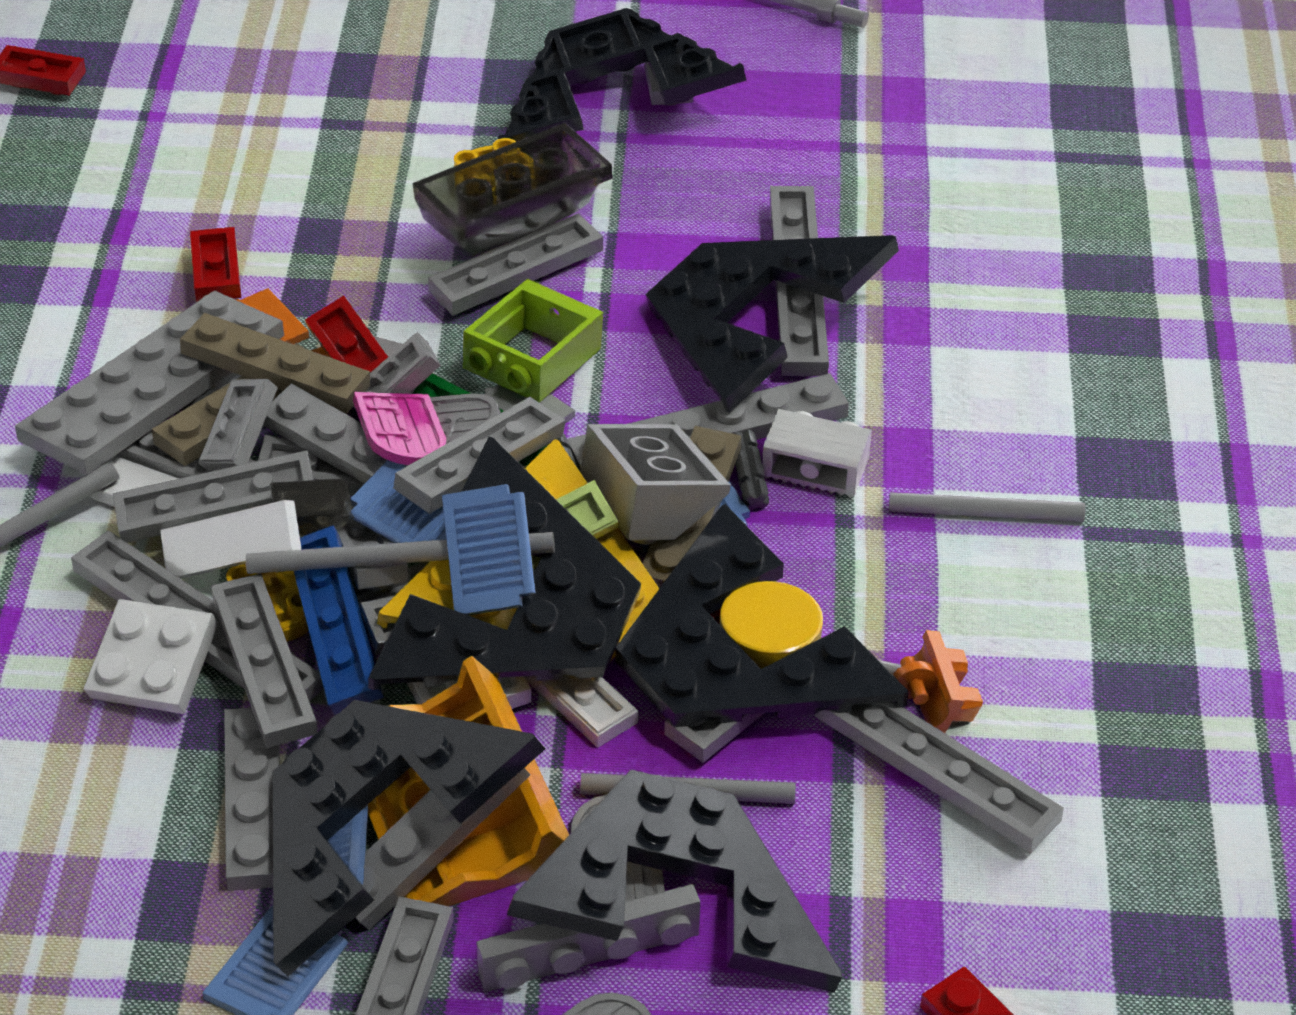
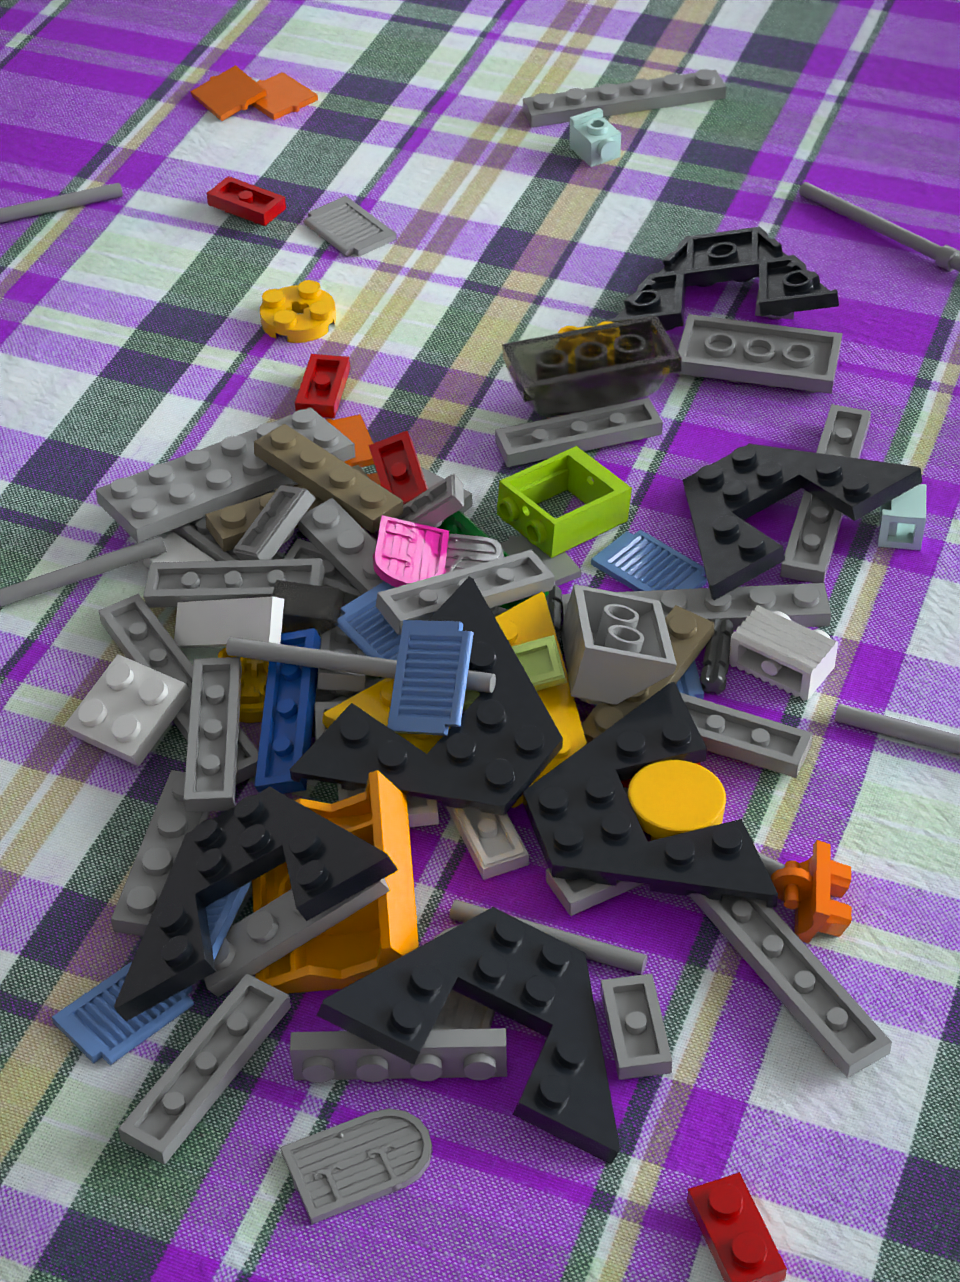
camera: 20 degrees right, 0 degrees up
(132, 182) = (281, 307): none -> yellow plate
(166, 81) = (349, 227): none -> light grey window
(641, 390) = (648, 564): none -> medium blue window
(677, 144) = (759, 353): none -> light grey plate
(812, 853) = (636, 1026): none -> light grey plate
(818, 544) = (749, 737): none -> light grey plate
(887, 294) = (903, 520): none -> light aqua brick

